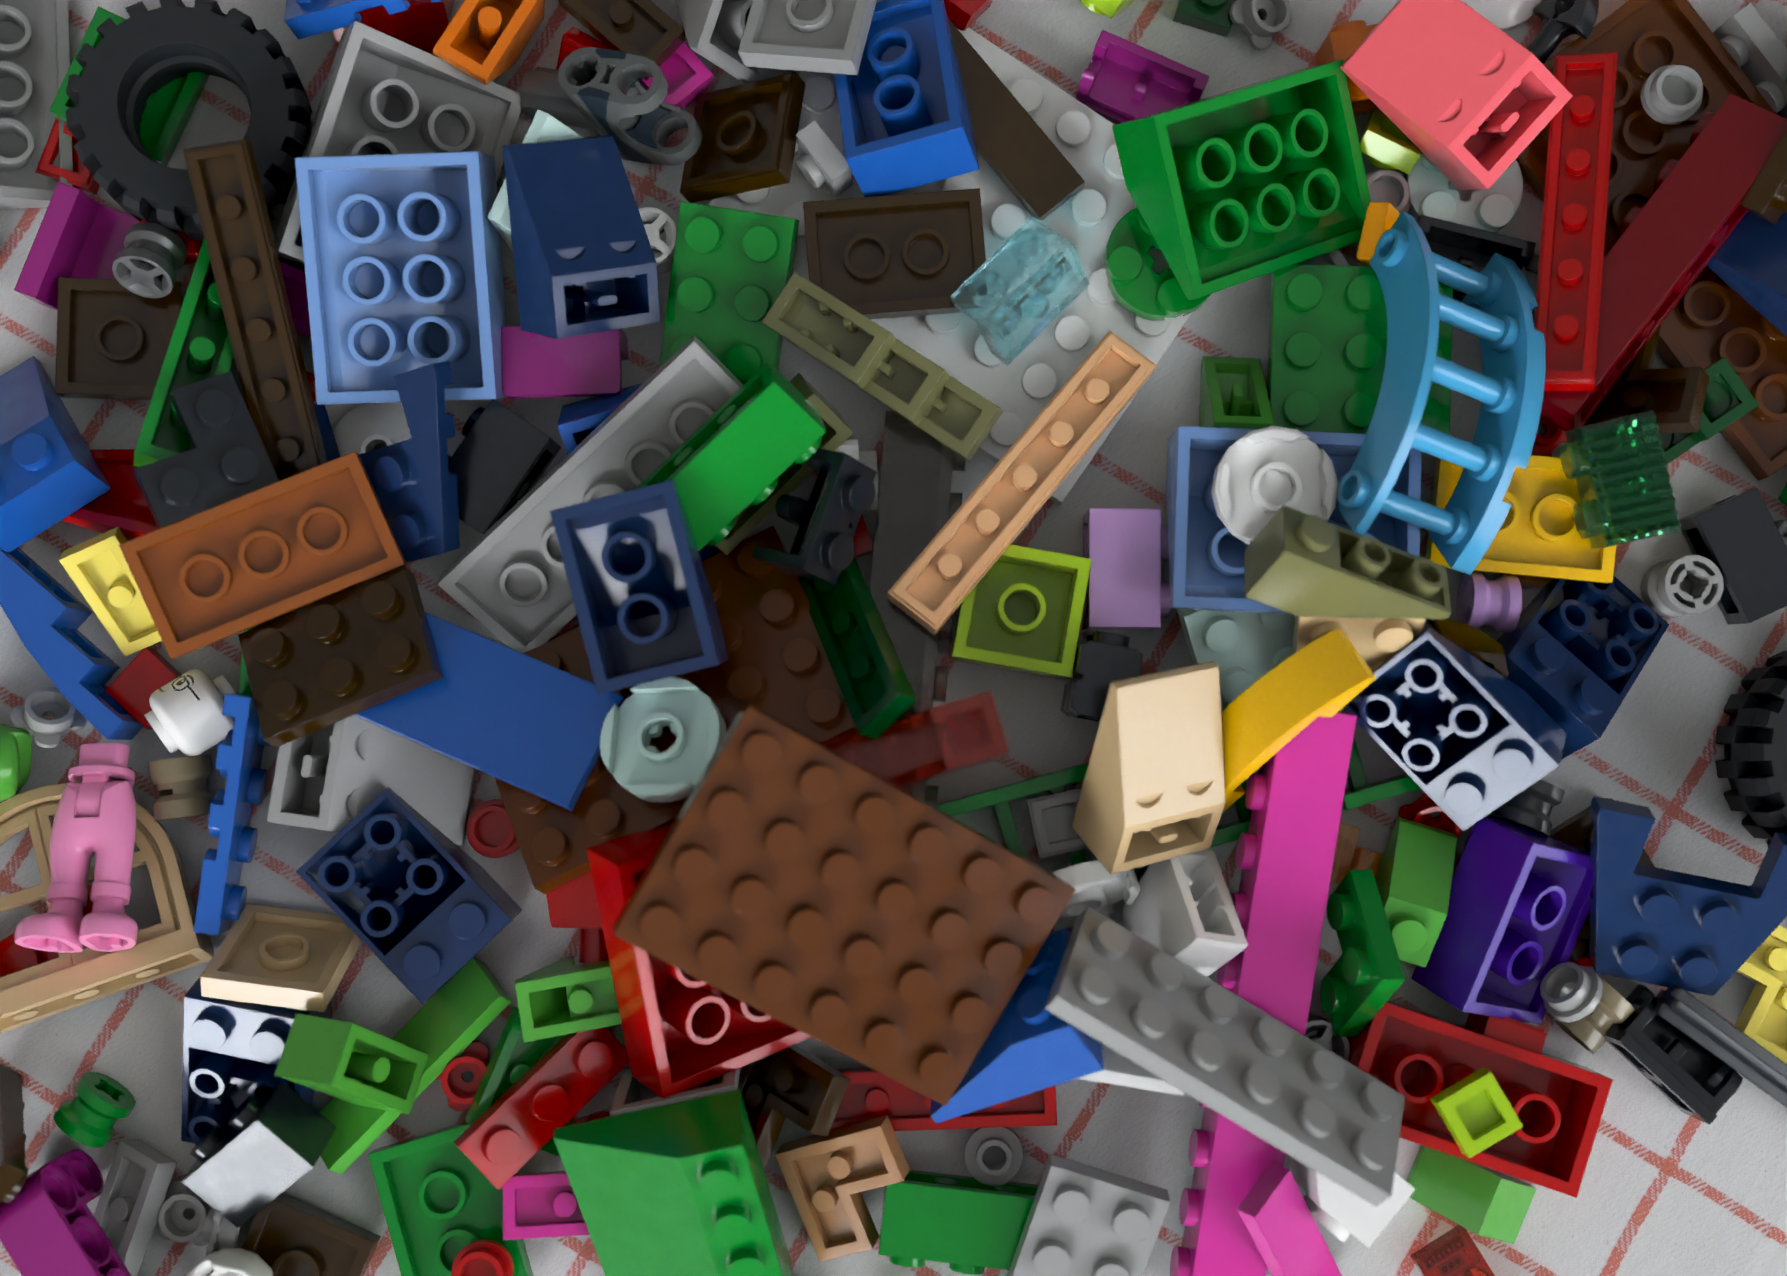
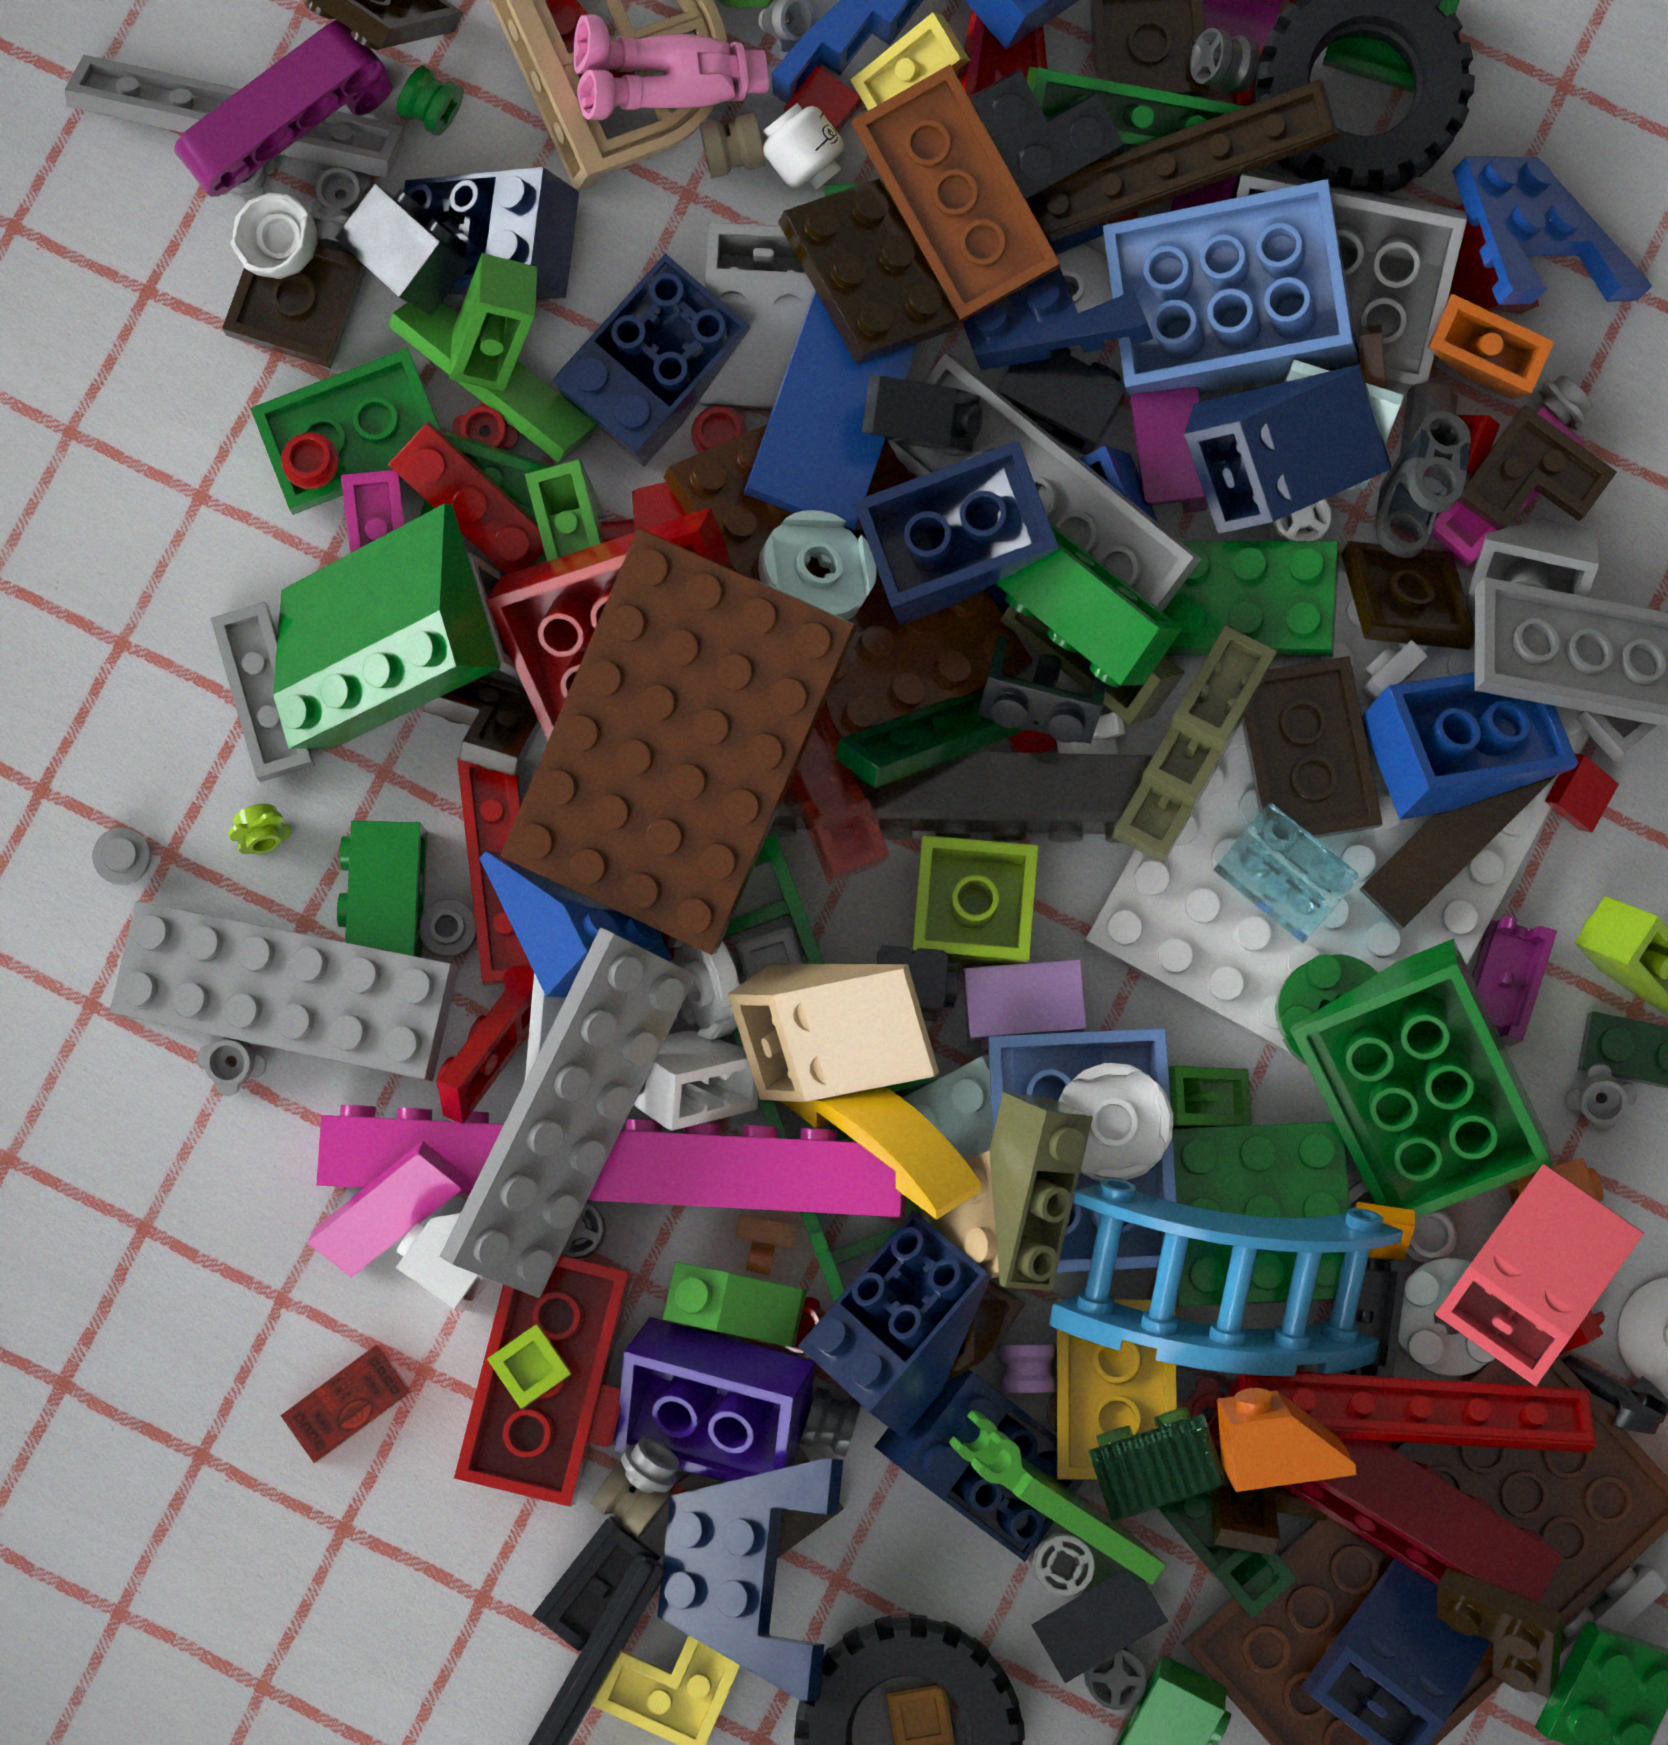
camera: 85 degrees right, 5 degrees down
(229, 819) = (707, 190): blue wing -> none
(281, 959) = (583, 250): tan plate -> none
(487, 139) = (1372, 355): none -> reddish brown tile
(504, 613) = (921, 414): none -> black slope
(828, 1182) = (413, 770): medium nougat plate -> none
(1020, 483) = (1098, 888): light nougat tile -> none
(1131, 1125) = (489, 1047): none -> red plate
(1369, 960) = (665, 1251): green plate -> none
(1387, 145) = (1476, 1228): lime plate -> none
(1470, 1194) = (442, 1397): bright green slope -> none
(1623, 354) = (1276, 1443): none -> orange slope
(1647, 587) = (1001, 1463): none -> bright green tile
(1672, 94) = (1563, 1513): light grey plate -> none

